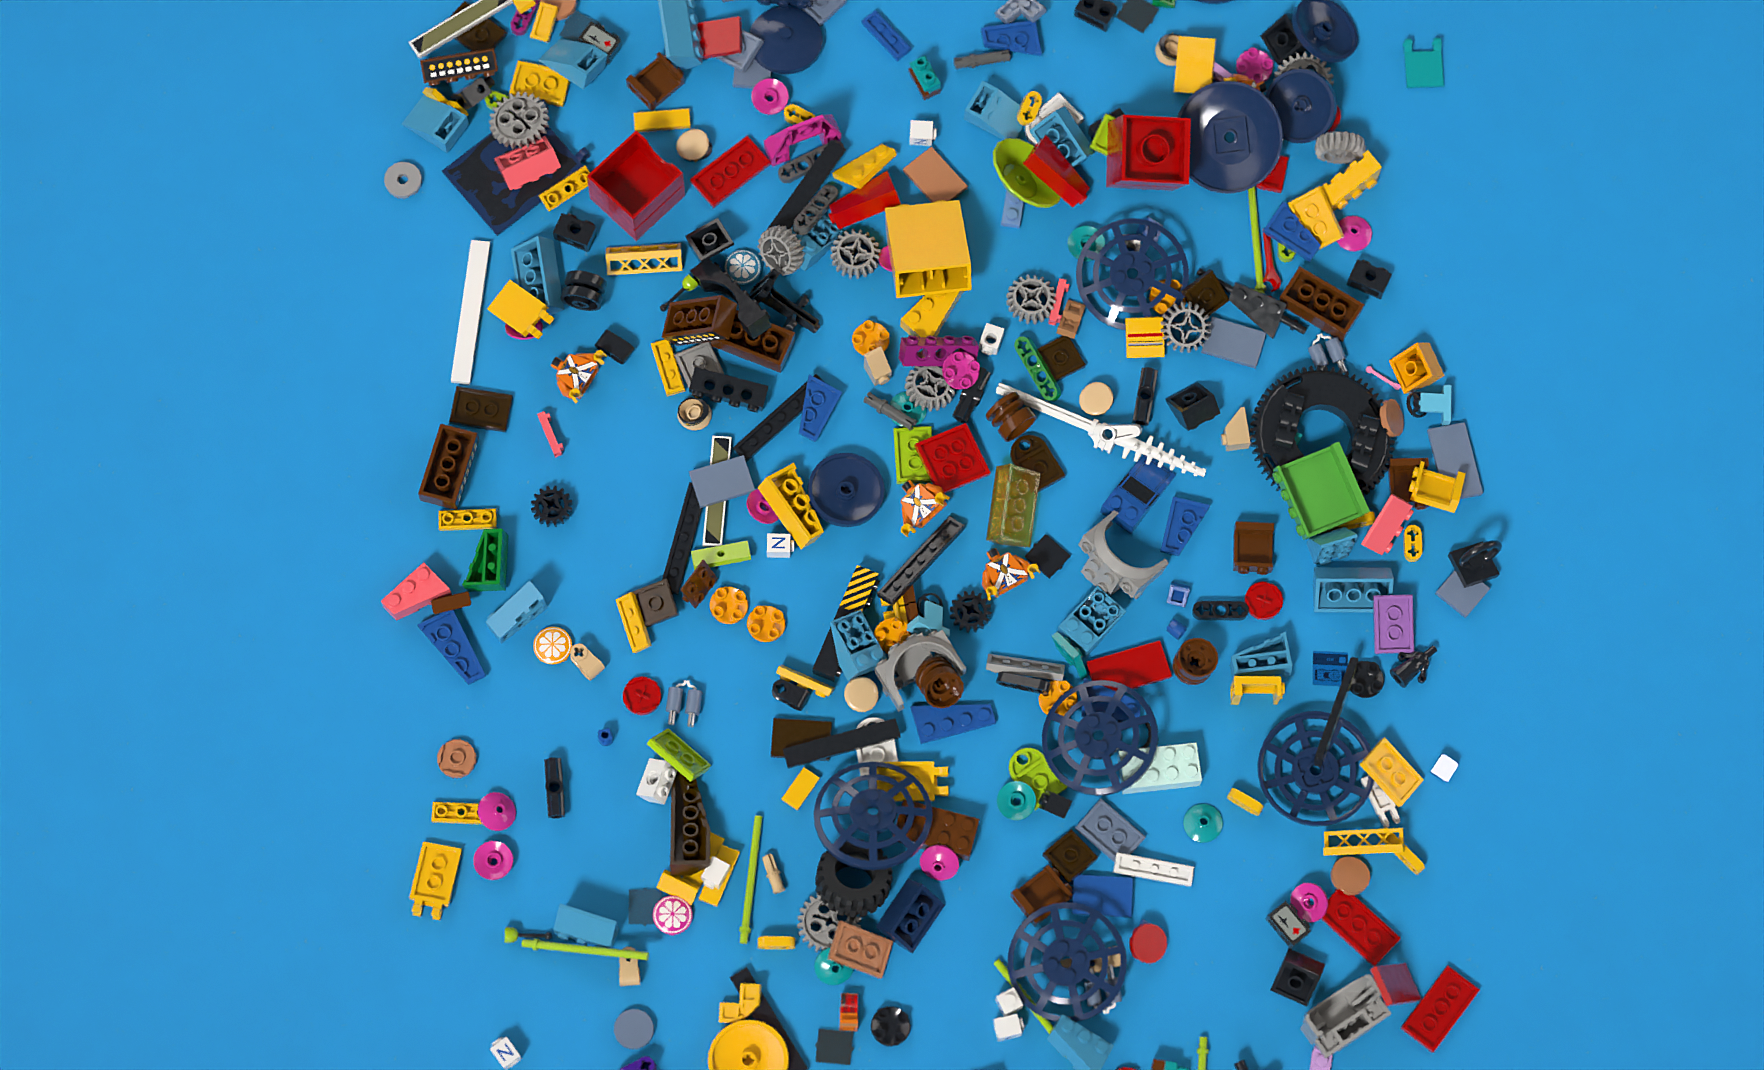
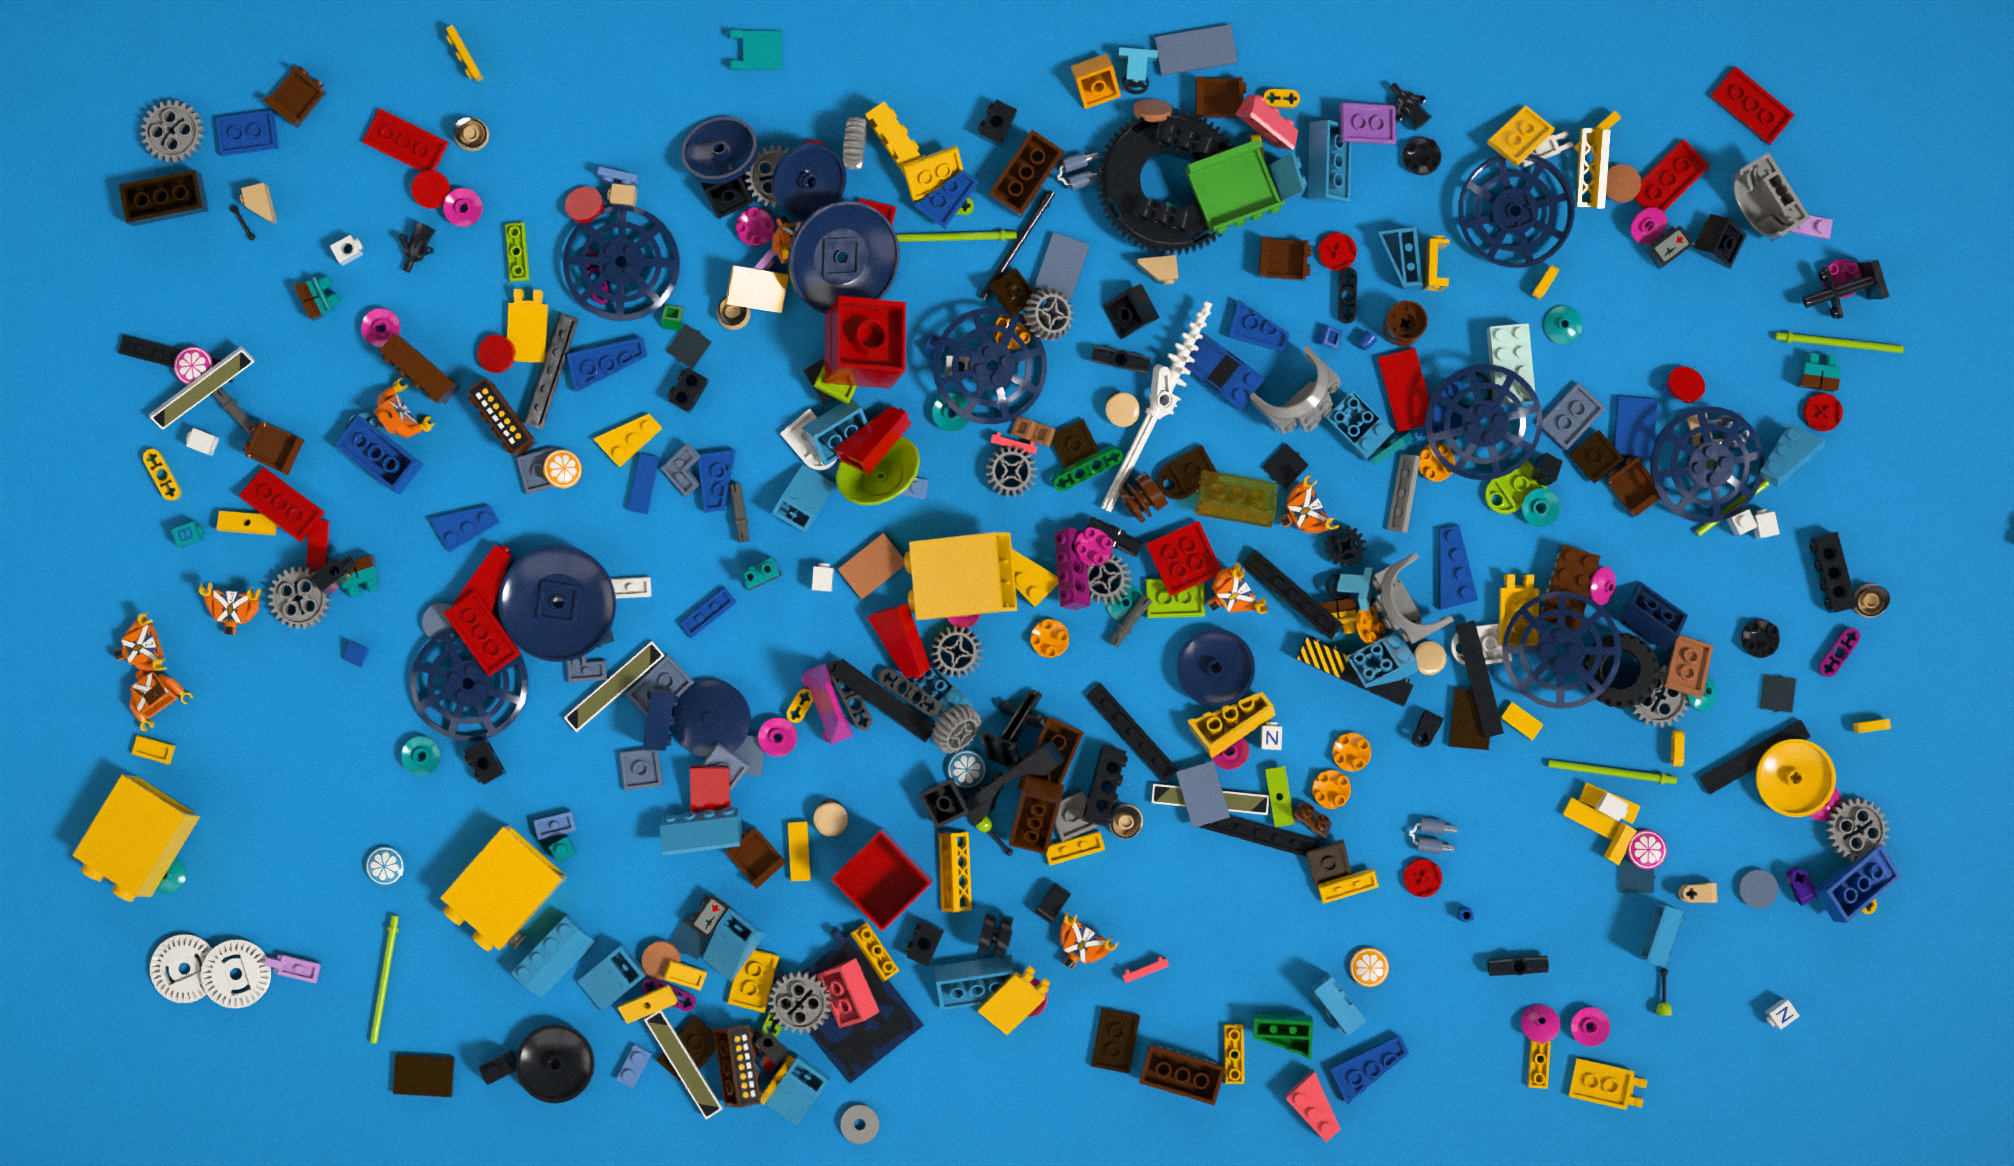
camera: 90 degrees left, 15 degrees up
(451, 602) = (1326, 1070): reddish brown slope -> none
(456, 758) = (1483, 1063): nougat tile -> none
(470, 312) = (1009, 1052): white tile -> none
(536, 944) = (1673, 983): lime bar -> none
(545, 501) = (1228, 960): black gear -> none
(588, 663) = (1391, 931): tan piece -> none
(656, 781) = (1515, 863): white brick -> none
(679, 754) = (1489, 841): lime tile -> none
(688, 829) = (1558, 832): dark brown wedge -> none
(730, 171) = (858, 780): red tile -> none
(749, 1000) = (1735, 775): yellow tile -> none
(773, 874) = (1607, 749): tan axle -> none
(804, 681) = (1413, 714): yellow tile -> none
(817, 407) = (1125, 695): blue wing -> none
(848, 1012) = (1747, 679): leg -> none
(865, 167) = (860, 639): yellow wing -> none
(877, 366) = (1085, 631): tan slope -> none
(939, 682) = (1424, 580): reddish brown wheel -> none
(994, 332) = (1049, 506): white brick -> none
(1023, 683) = (1422, 495): black beam -> none
(1025, 106) = (799, 469): yellow beam -> none
(1144, 337) = (1056, 357): yellow slope -> none
(1153, 869) = (1611, 375): white tile -> none
(1259, 307) = (1027, 237): black wing -> none
(1270, 274) = (988, 223): red piece -> none
(1329, 668) = (1408, 190): clear blue sticker -> none
(1336, 712) = (1464, 186): black tile -> none
(1358, 240) = (939, 125): dark pink dish -> none
(1369, 369) = (1094, 129): bright pink hinge -> none
(1395, 984) = (1740, 146): tile -> none
(1436, 489) = (1230, 69): yellow panel -> none
(1444, 767) = (1514, 83): slope -> none
(1461, 598) = (1332, 52): sand blue tile -> none
(1475, 563) = (1306, 37): black tile -> none

